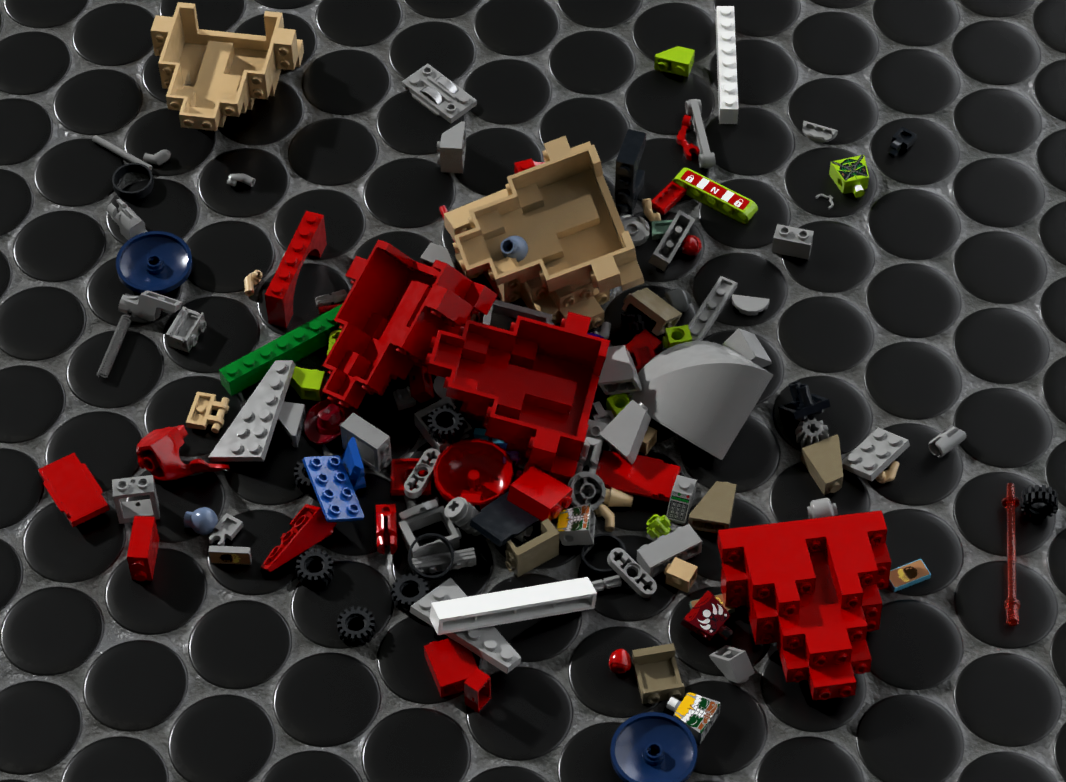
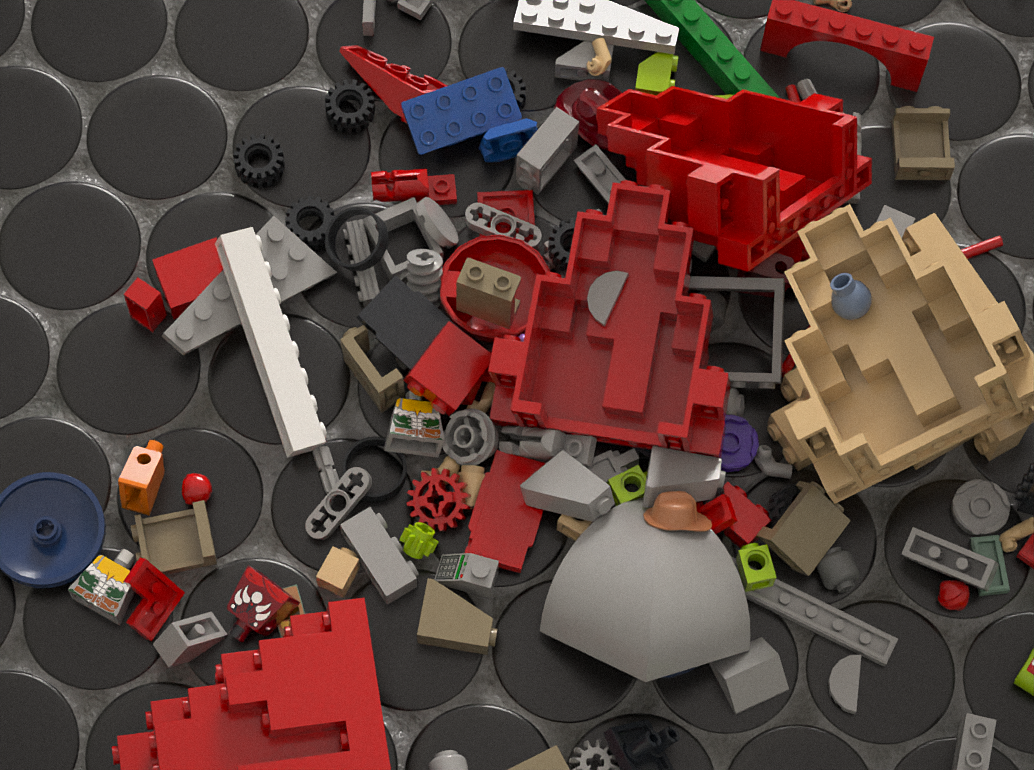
camera: 85 degrees right, 15 degrees up
(296, 405) = (601, 60): none -> tan arm
(364, 238) = (921, 143): none -> dark tan panel
(392, 409) = (599, 171): none -> light grey plate
(490, 387) = (604, 295): none -> light grey tile
(493, 457) = (487, 293): none -> dark tan panel
(613, 691) = (142, 478): none -> orange torso
(626, 521) = (436, 488): none -> red gear
(649, 368) = (676, 512): none -> nougat piece
(697, 682) = (158, 595): none -> red plate

